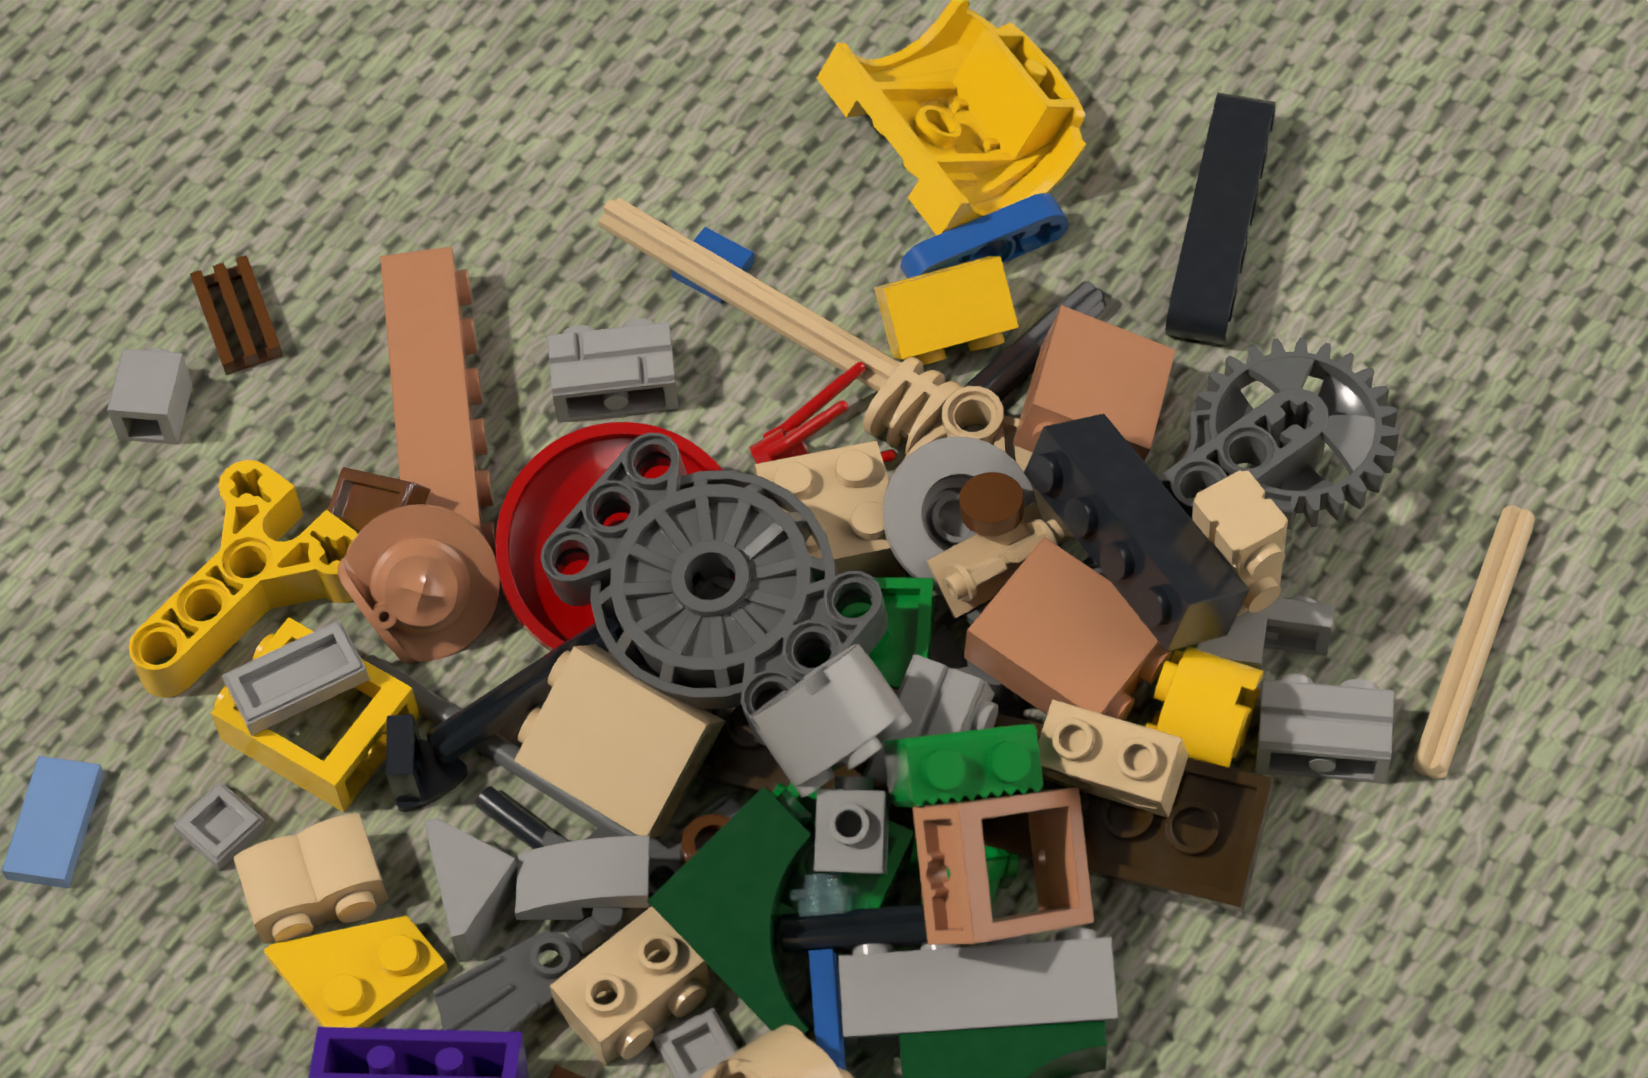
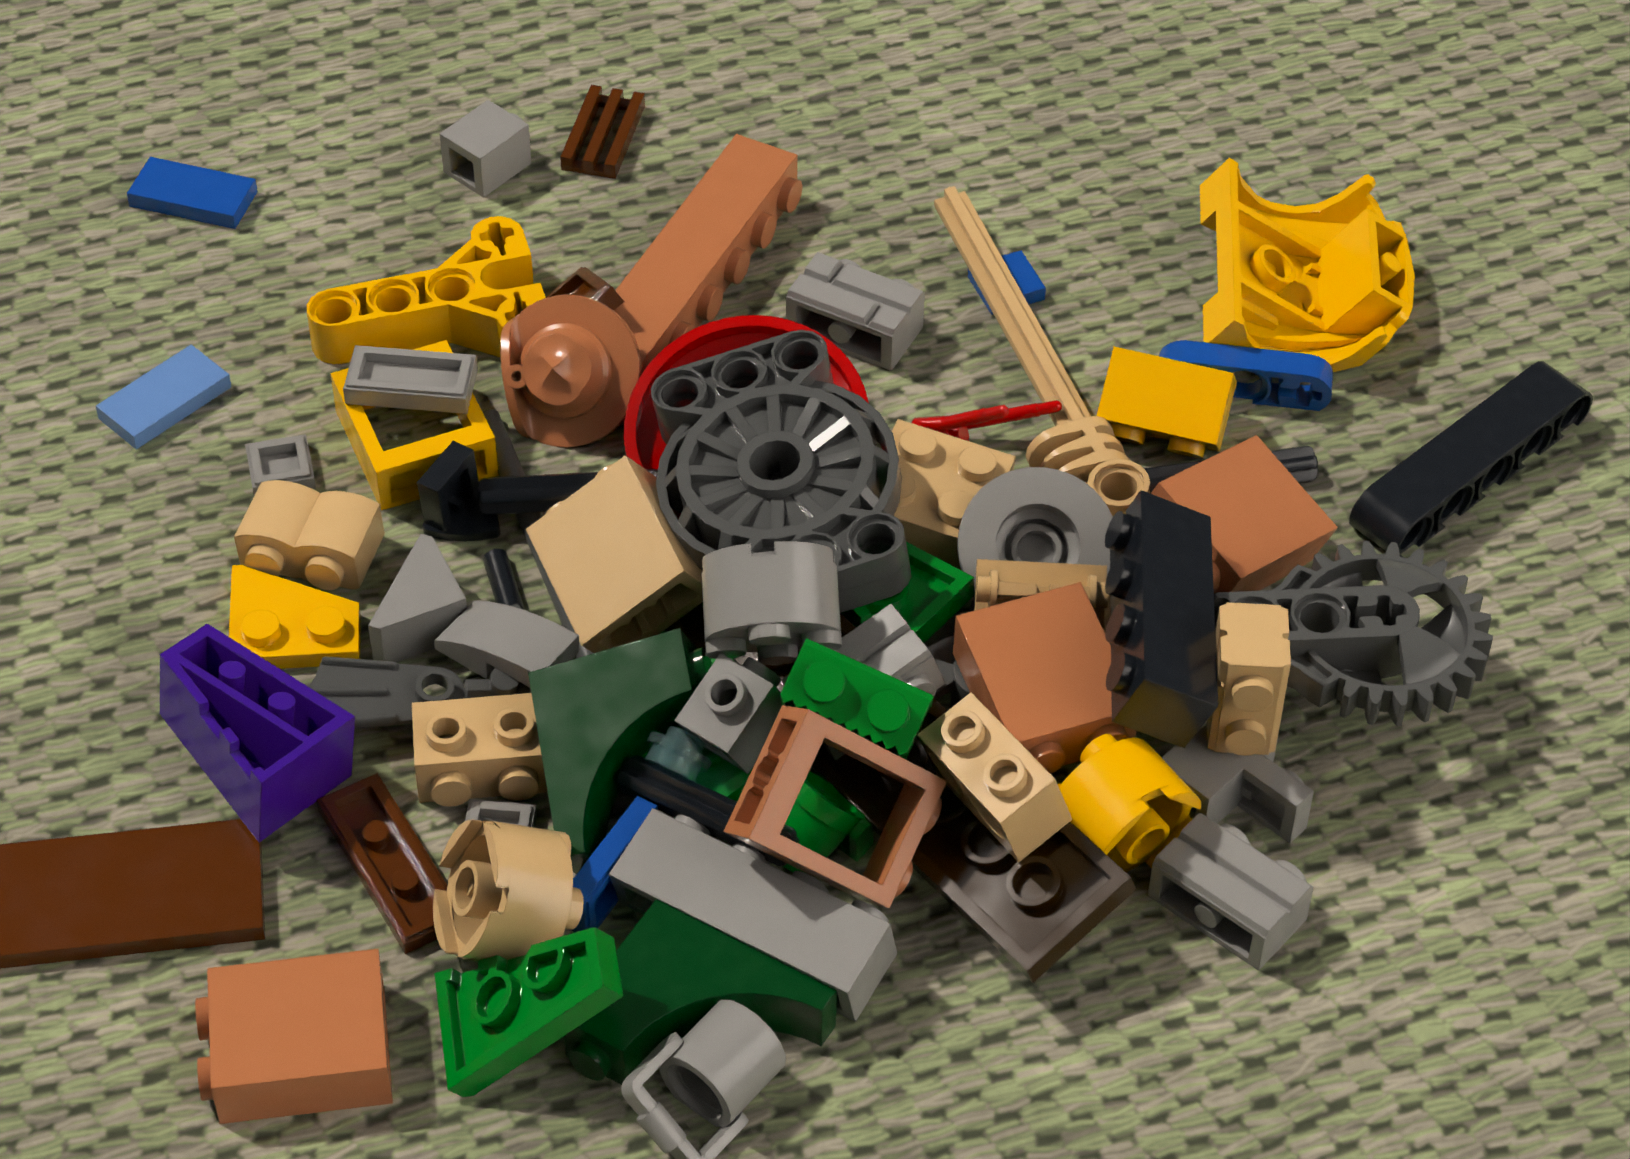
camera: 30 degrees right, 10 degrees down
(991, 504) = (1064, 543): reddish brown tile -> none
(1473, 643) = (1431, 903): tan axle -> none

